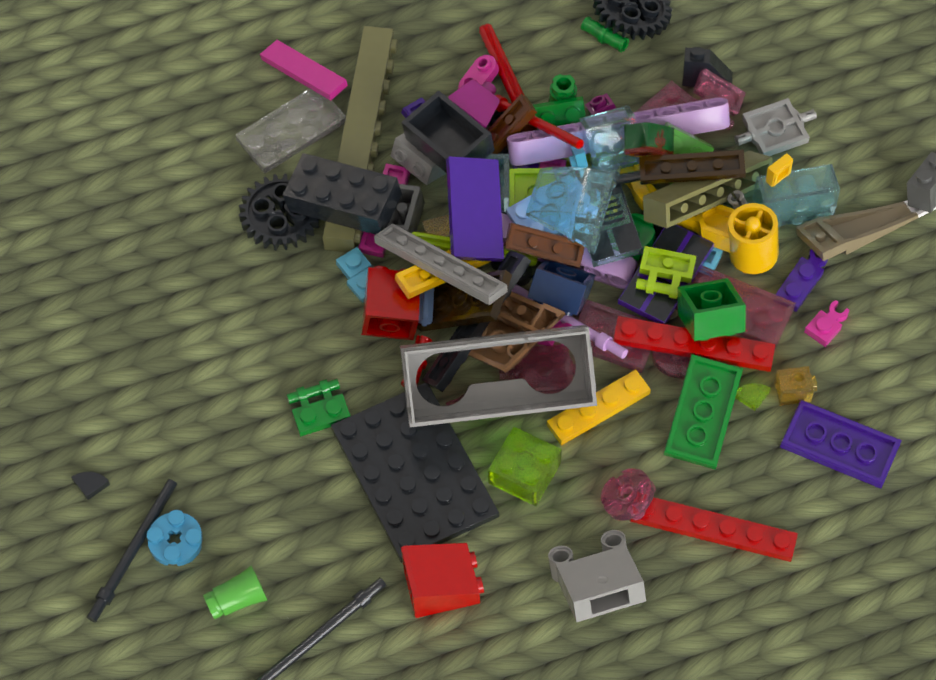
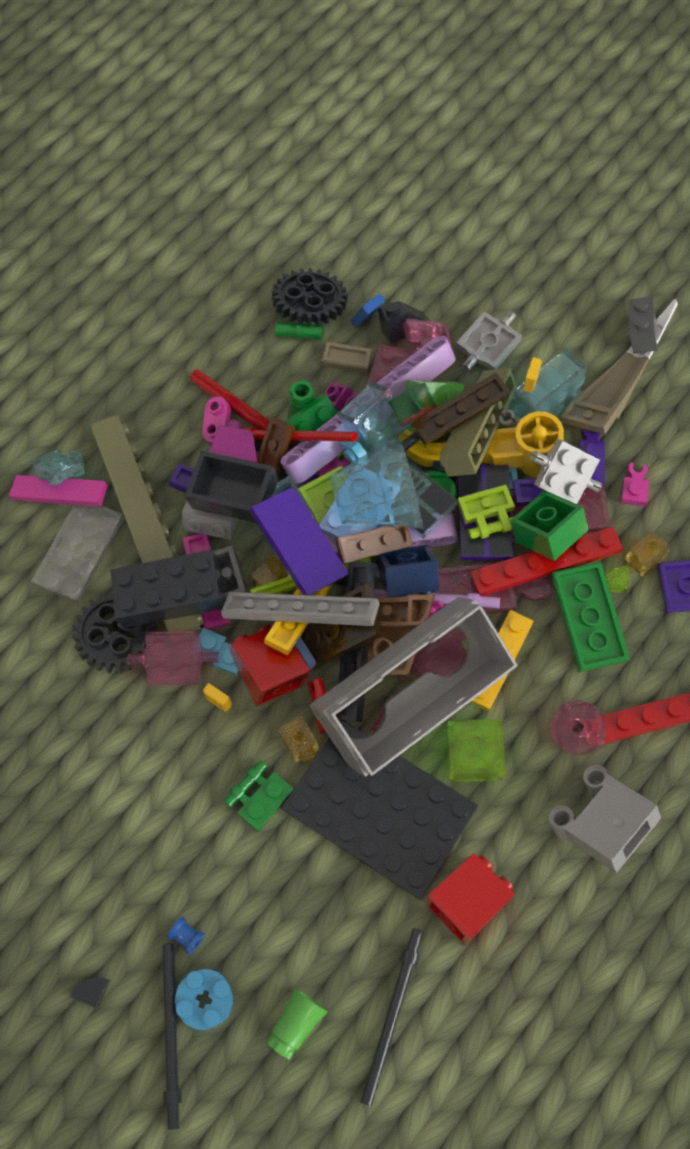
camera: 30 degrees left, 5 degrees up
(190, 481) = (185, 935): none -> blue bush
(314, 256) = (173, 658): none -> clear pink plate
(315, 48) = (56, 467): none -> clear light blue plate
(332, 309) = (217, 697): none -> yellow tile
(379, 378) = (299, 739): none -> clear yellow brick
(634, 79) = (346, 357): none -> dark tan tile
(675, 44) = (367, 310): none -> blue tile
(715, 271) = (525, 491): none -> dark purple plate
(758, 272) = (566, 471): none -> plate

